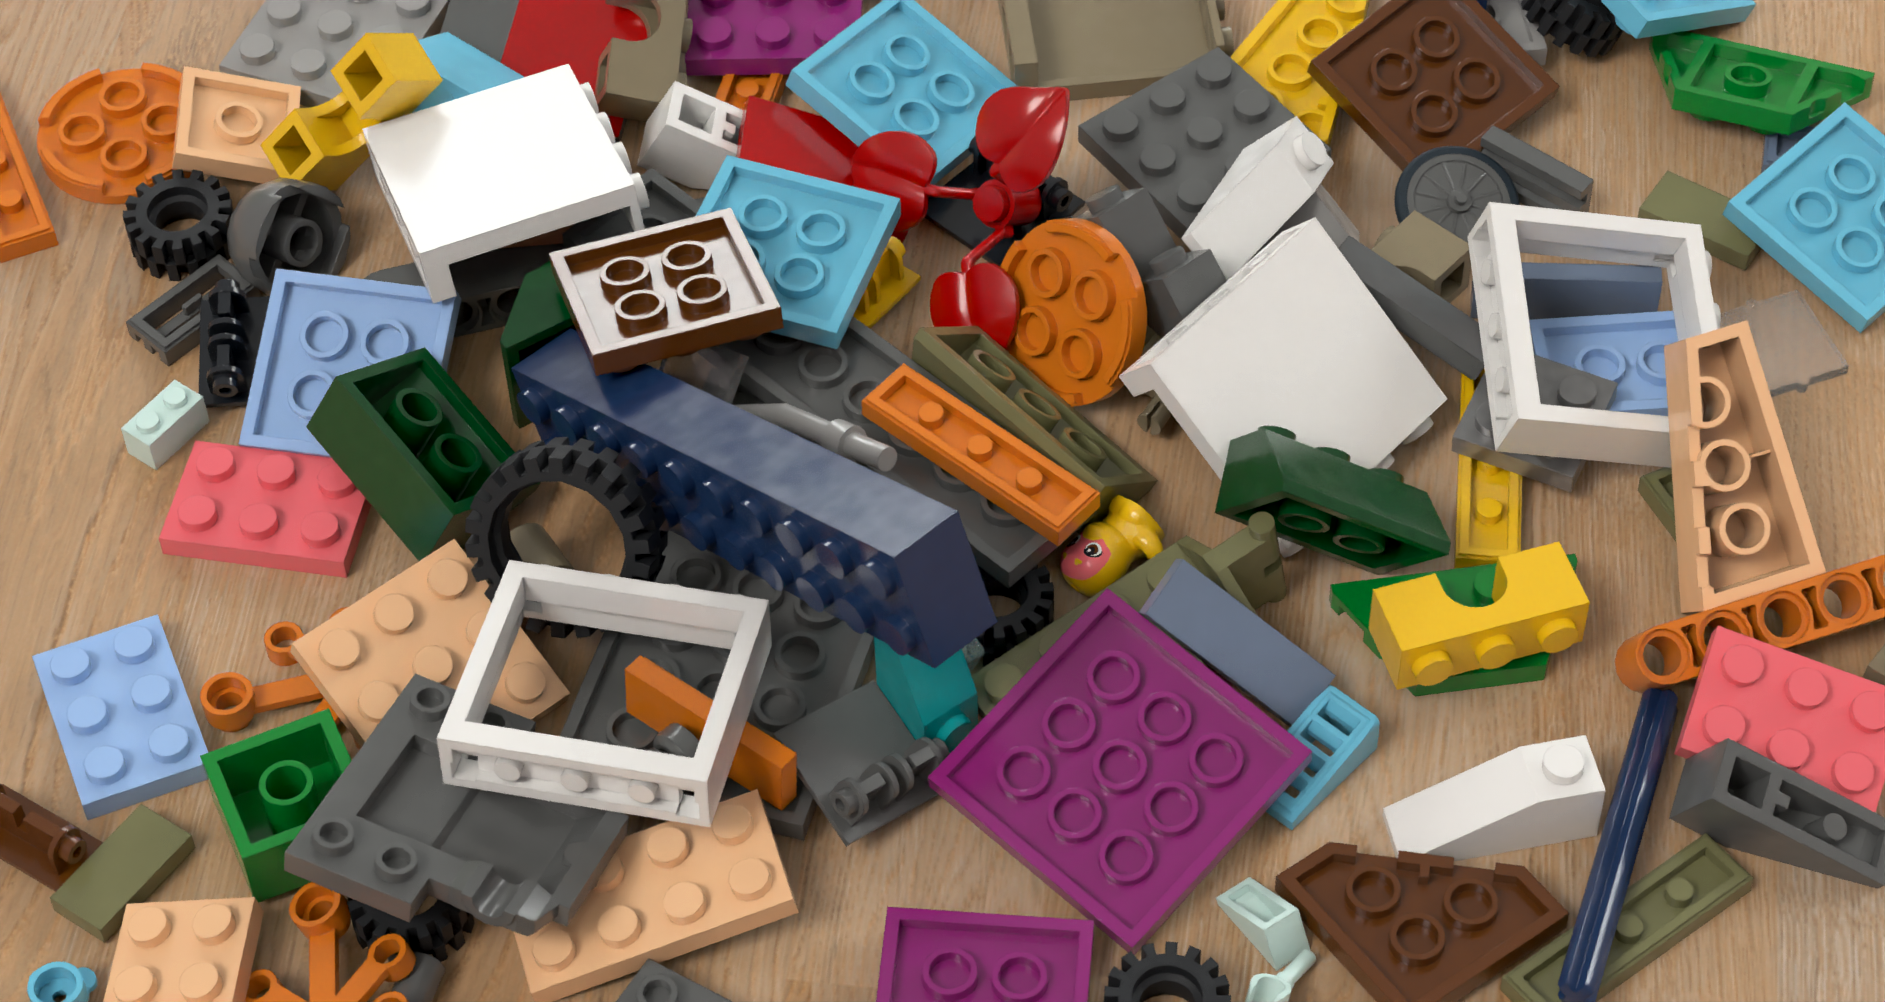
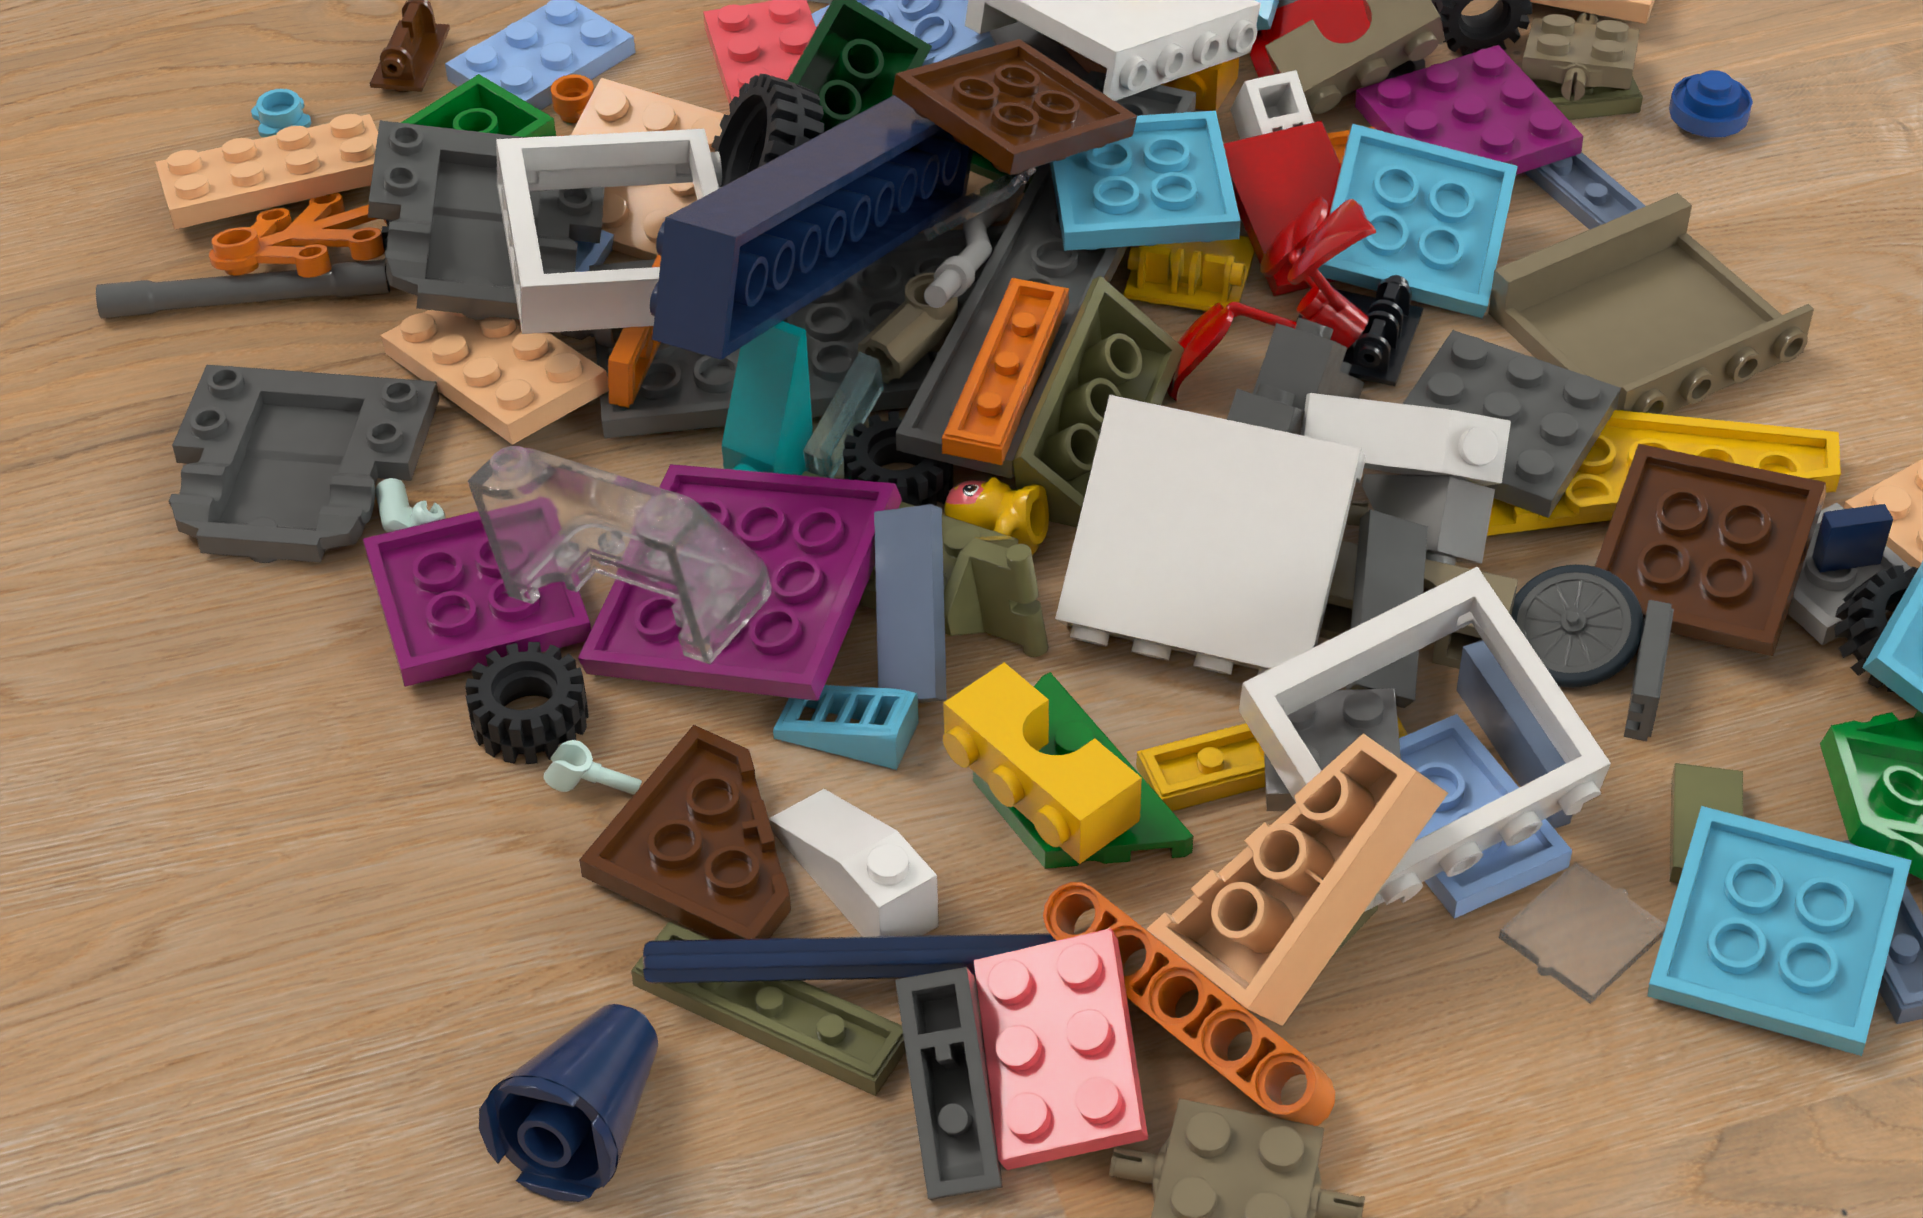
camera: 65 degrees right, 5 degrees down
(122, 872) = (390, 99): olive tile -> none
(862, 762) = (668, 421): dark grey hinge -> none
(1077, 308) = (1227, 362): orange tile -> none
(1168, 768) = (572, 520): none -> clear windscreen
(1266, 921) = (653, 741): light aqua piece -> none
(1329, 502) = (1094, 602): dark green slope -> none

